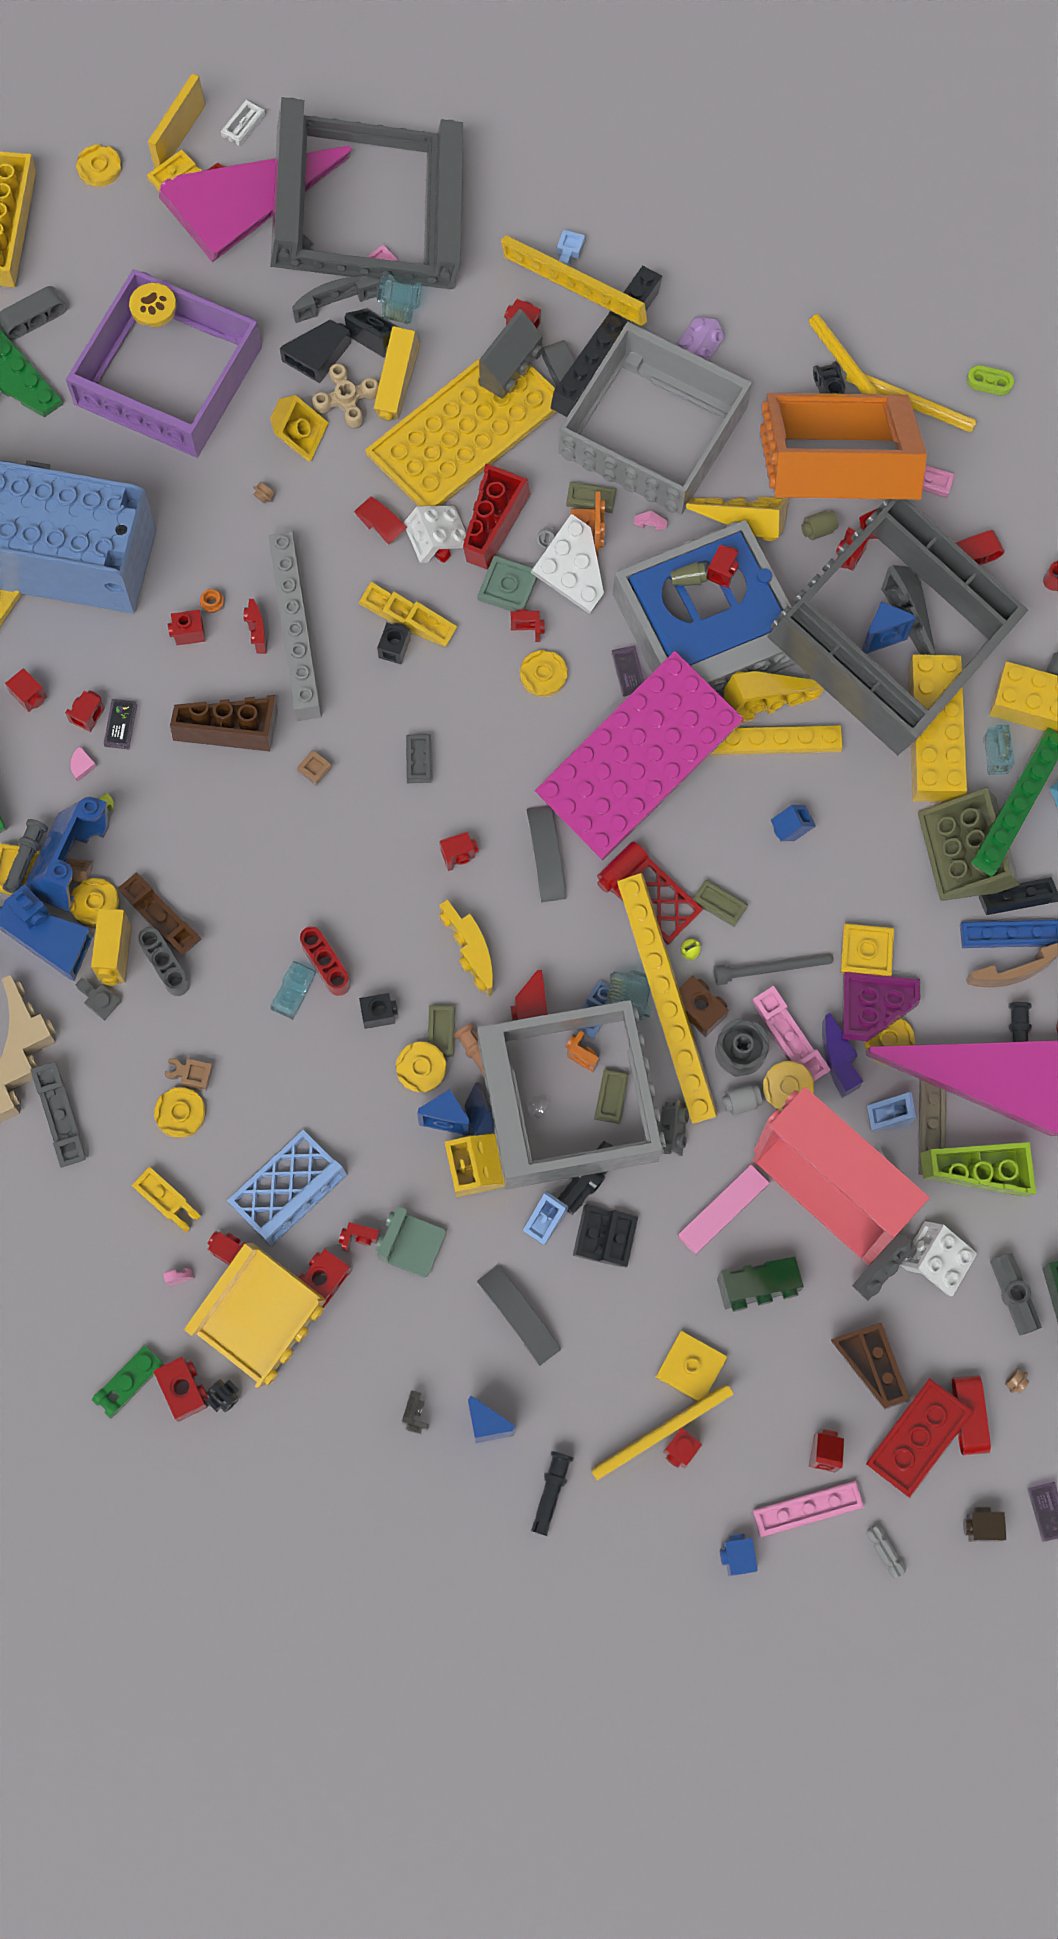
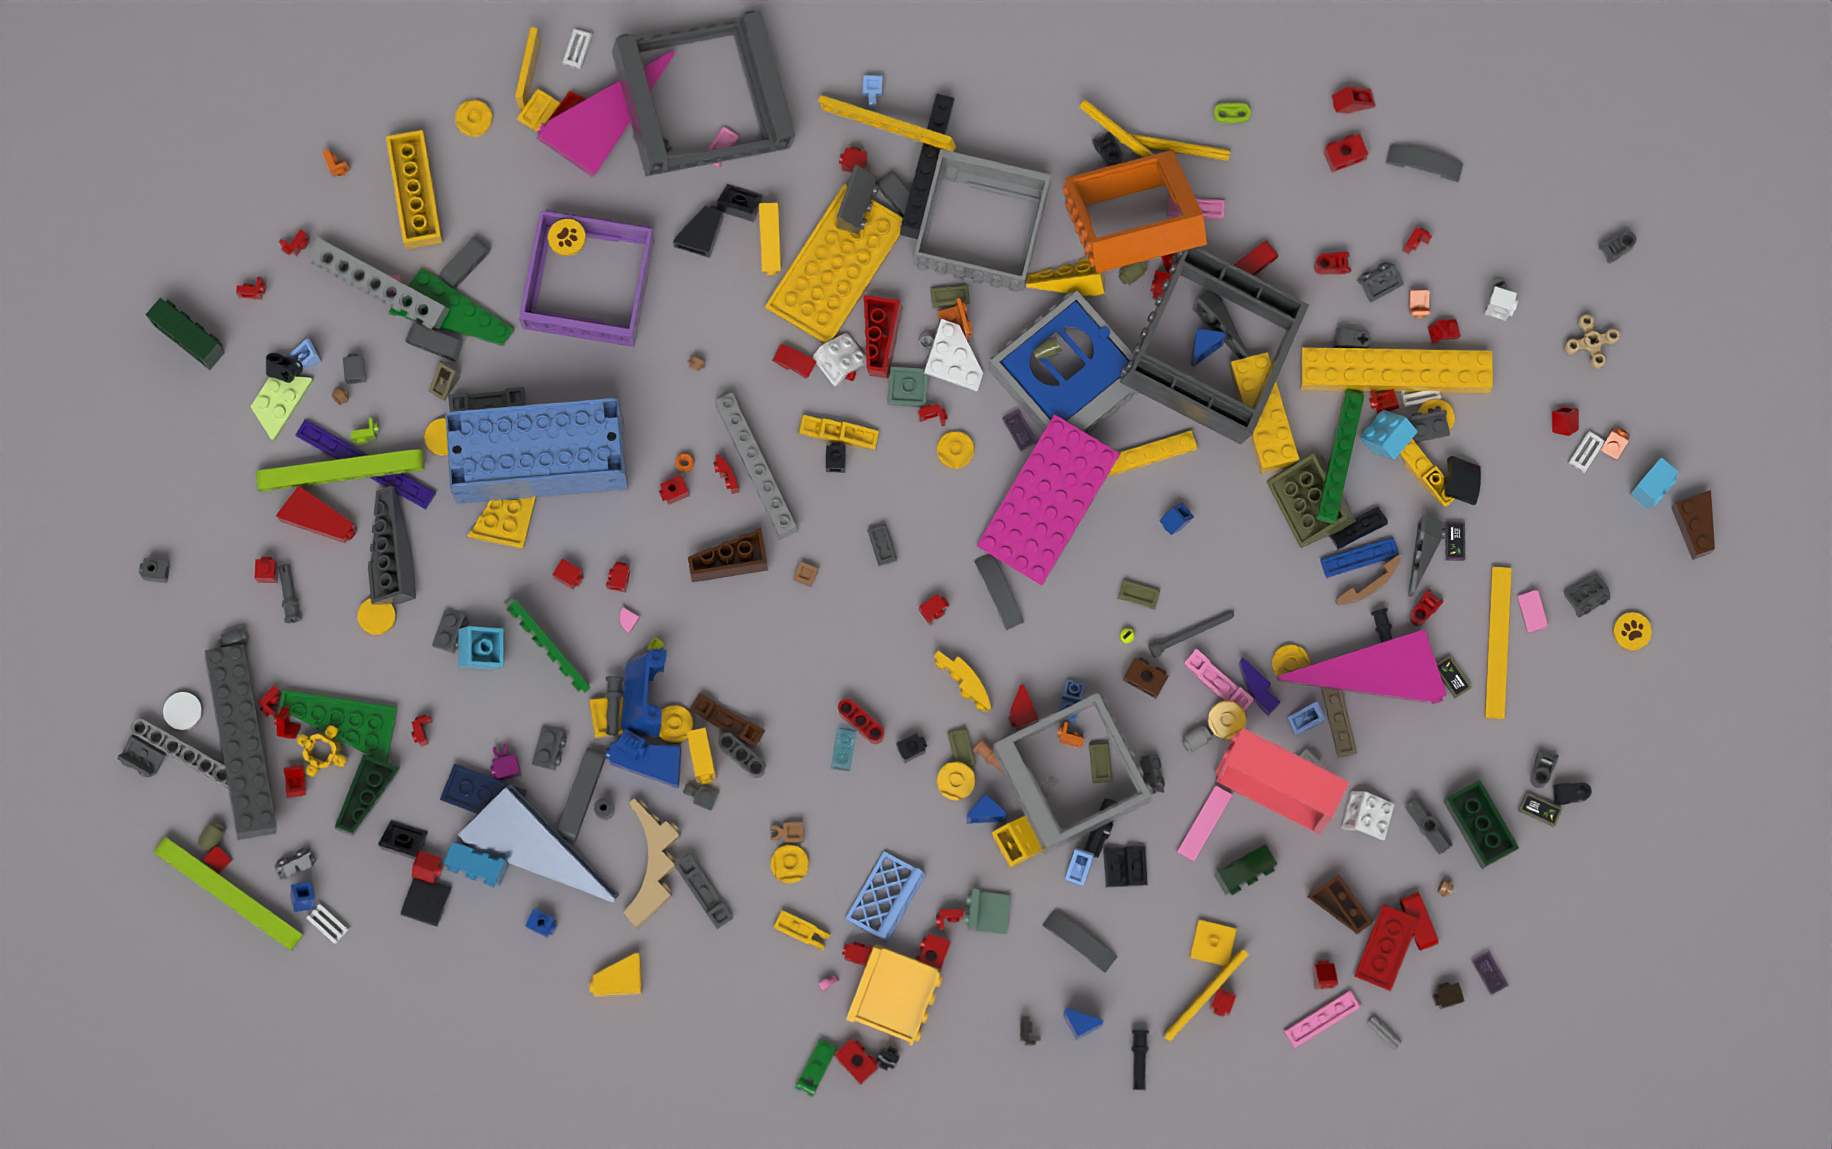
camera: 15 degrees left, 5 degrees up
(80, 868) = (656, 699): medium nougat plate -> none
(120, 724) = (647, 580): tile -> none
(298, 425) = (706, 301): yellow slope -> none
(334, 291) = (720, 169): dark grey slope -> none
(345, 395) = (731, 258): tan gear -> none
(398, 299) = (752, 173): clear light blue piece -> none
(479, 1111) = (1009, 802): dark blue slope -> none
(631, 987) = (1093, 681): clear light blue piece -> none
(635, 860) = (1061, 590): red piece -> none
(650, 519) = (1001, 302): bright pink tile -> none
(667, 998) = (1121, 679): yellow plate -> none
(702, 337) = (997, 141): lavender bracket -> none
(723, 566) = (1071, 334): red brick -> none
(738, 1555) = (1282, 1065): blue brick -> none
(746, 1034) = (1184, 690): dark grey brick -> none
(760, 692) = (1121, 423): yellow wedge -> none
(867, 949) = (1257, 600): yellow plate -> none
(875, 1003) = (1273, 640): magenta plate -> none
(885, 1266) = (1330, 833): dark grey plate -> none
(985, 1167) = (1389, 739): lime wedge -> none
(998, 750) = (1314, 417): clear light blue piece -> none

